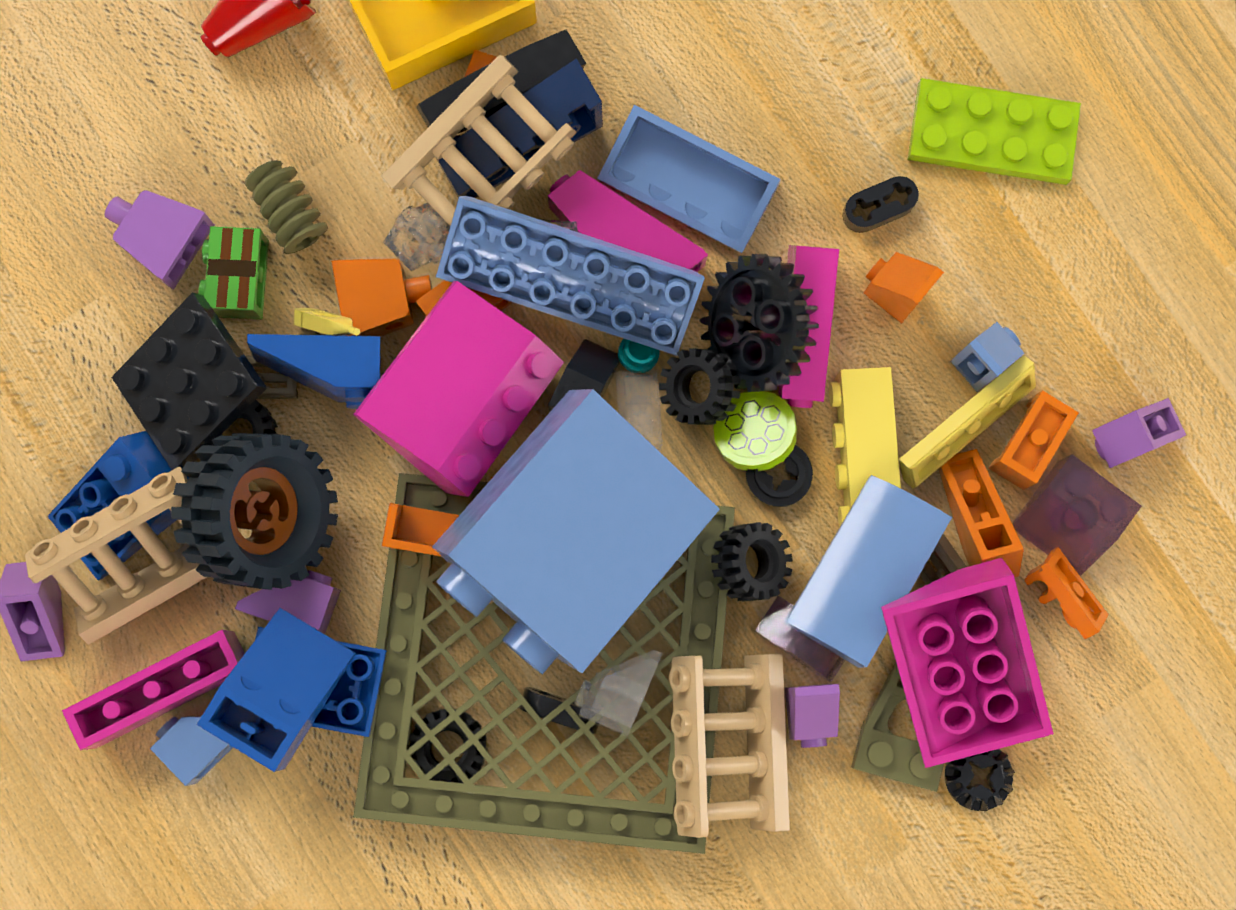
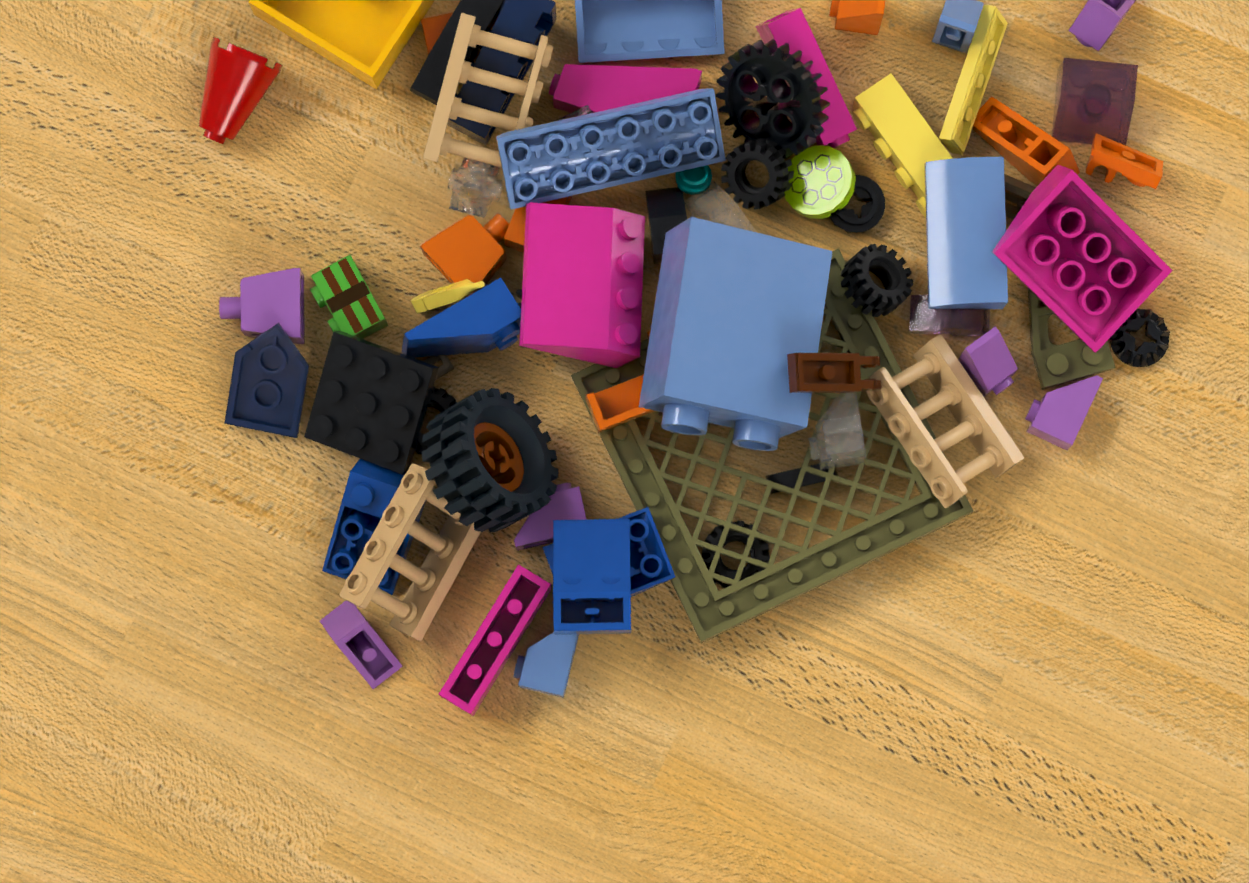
camera: 25 degrees left, 0 degrees up
(105, 306) = (268, 385): none -> dark blue tile
(283, 207) = (355, 227): olive piece -> none
(638, 632) = (830, 373): none -> reddish brown hinge
(857, 806) = (1062, 412): none -> medium lavender slope
(1034, 440) = (1030, 64): orange panel -> none

